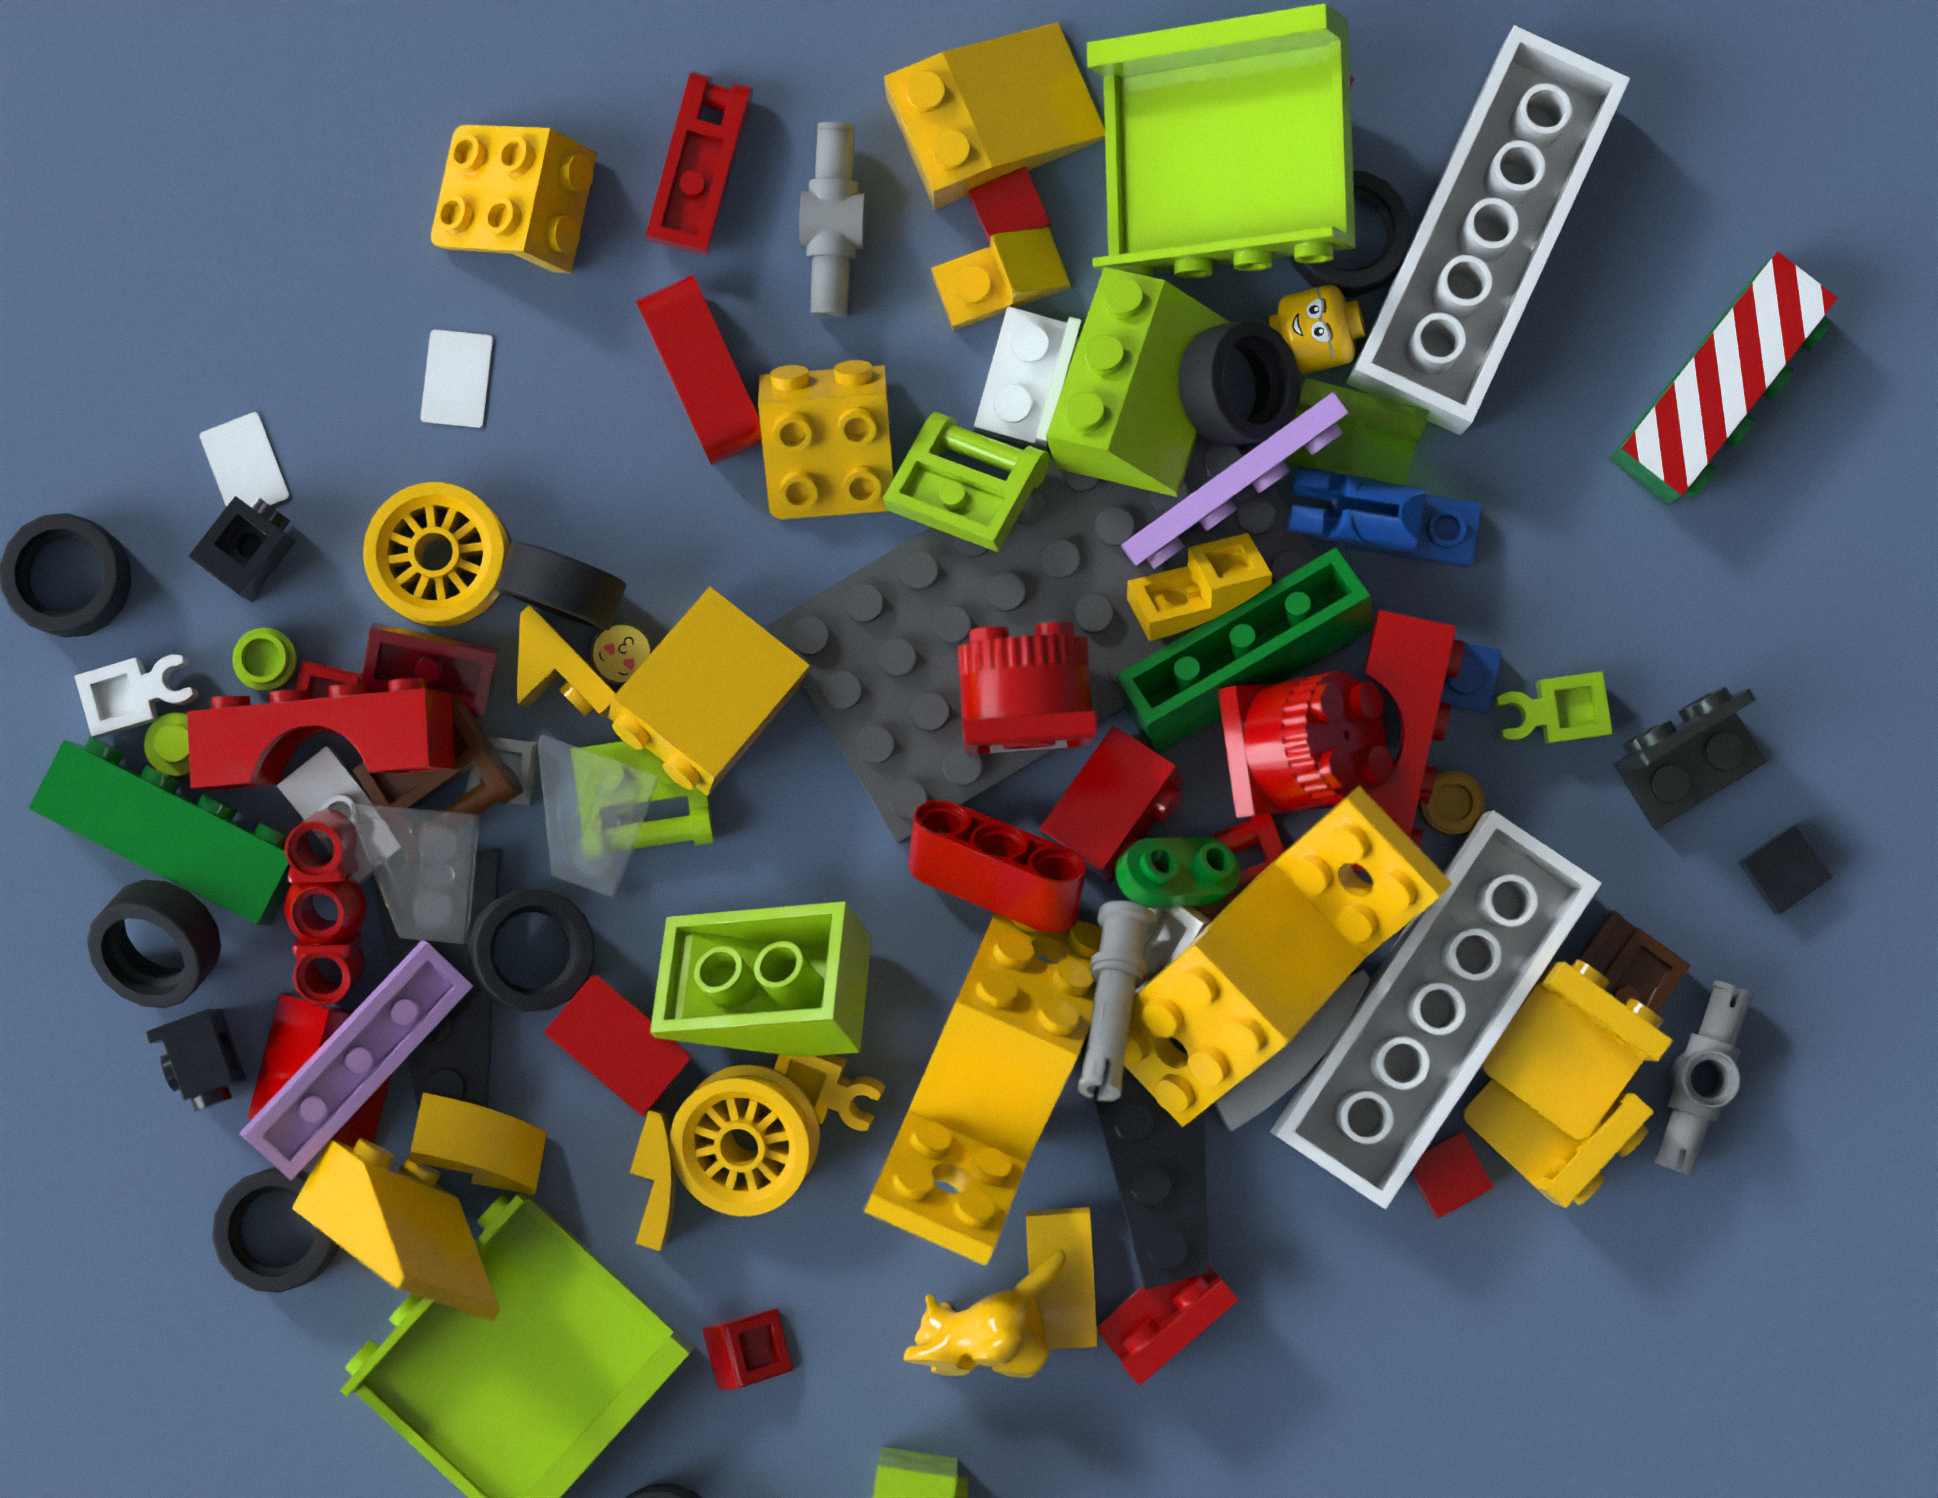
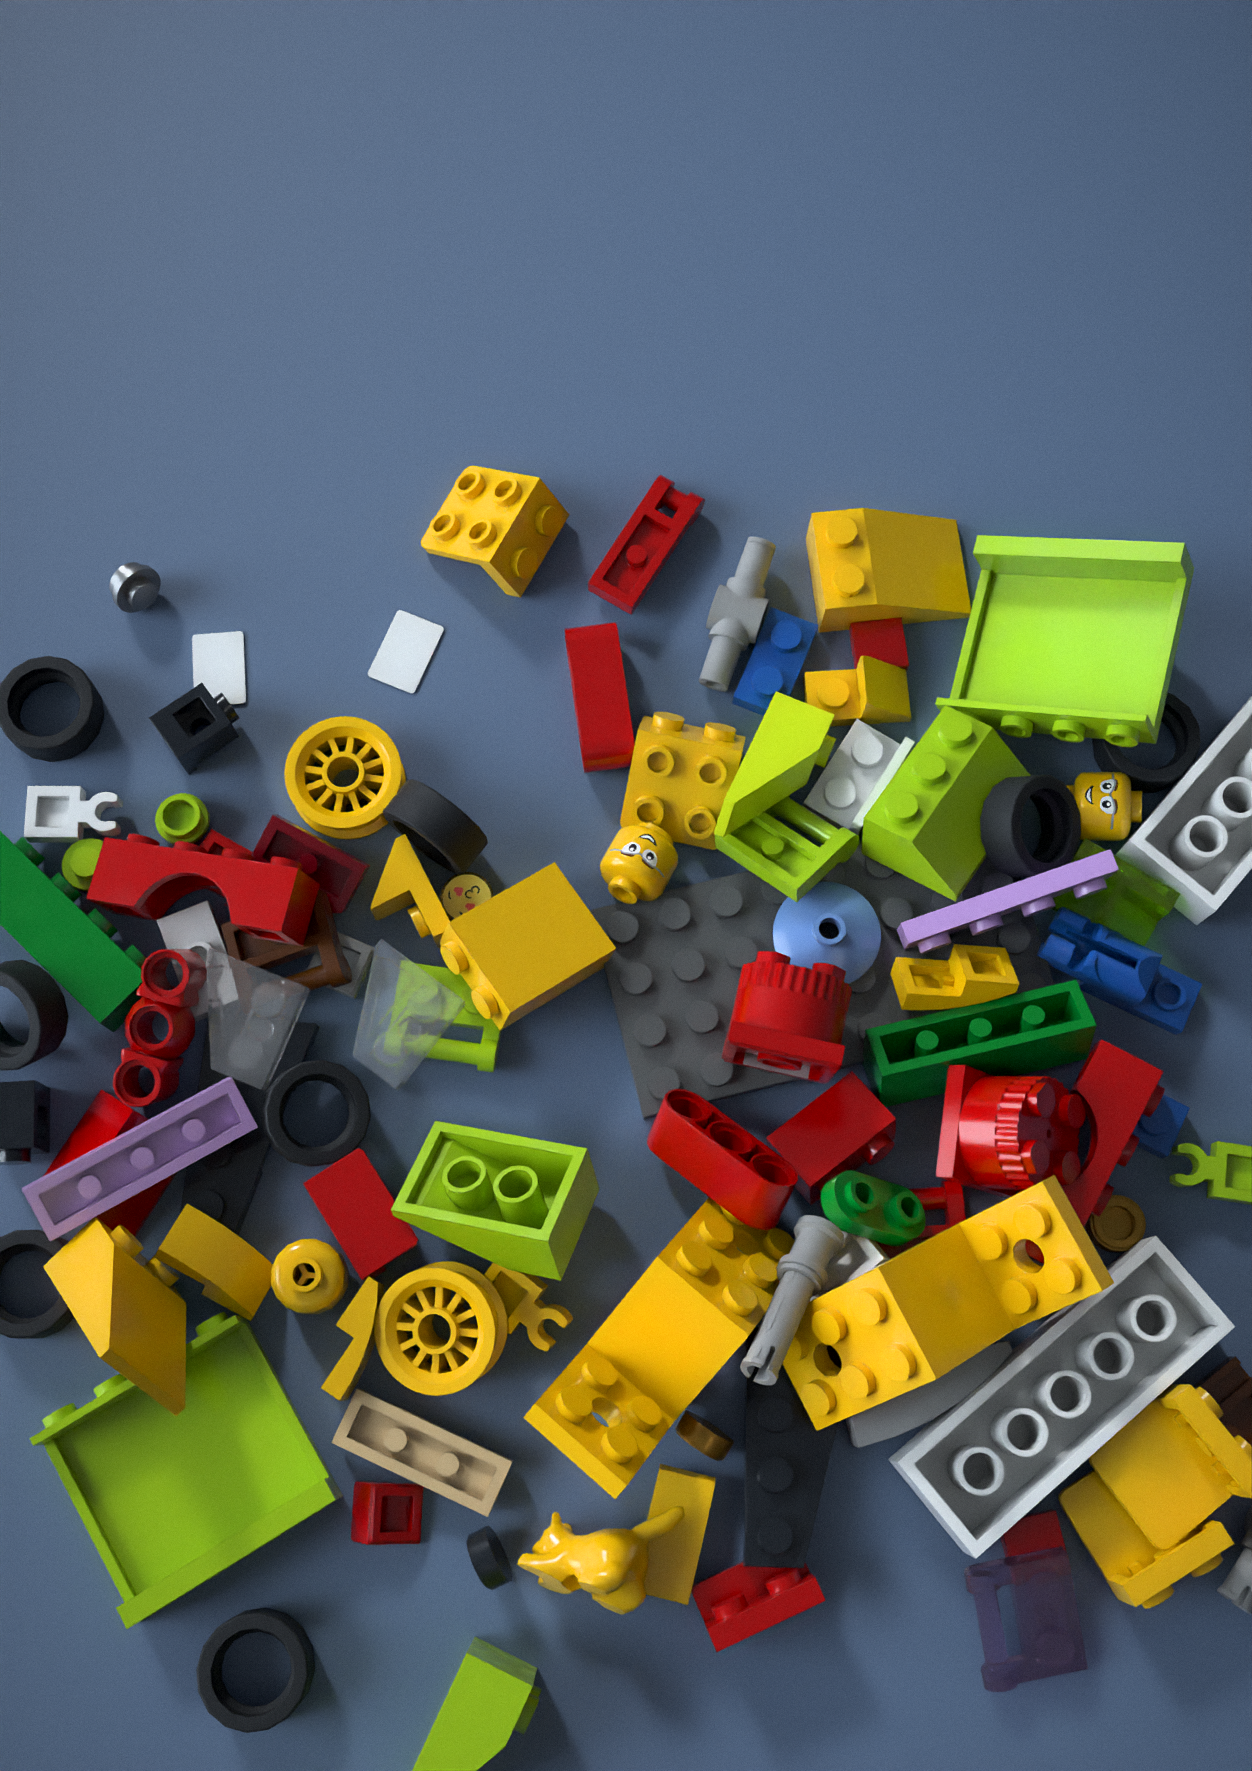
camera: 15 degrees right, 10 degrees down
(112, 398) = (134, 587): none -> flat silver plate
(605, 1120) = (329, 1282): none -> yellow head
(765, 1275) = (422, 1452): none -> tan plate
(806, 555) = (639, 863): none -> yellow head
(871, 1363) = (489, 1558): none -> black tile
(894, 266) = (775, 660): none -> blue plate
(930, 388) = (777, 761): none -> neon yellow slope
(1064, 1167) = (704, 1436): none -> pearl gold tile
(1070, 597) = (798, 933): none -> medium blue dish
(1476, 1242) = (1043, 1613): none -> clear purple plate

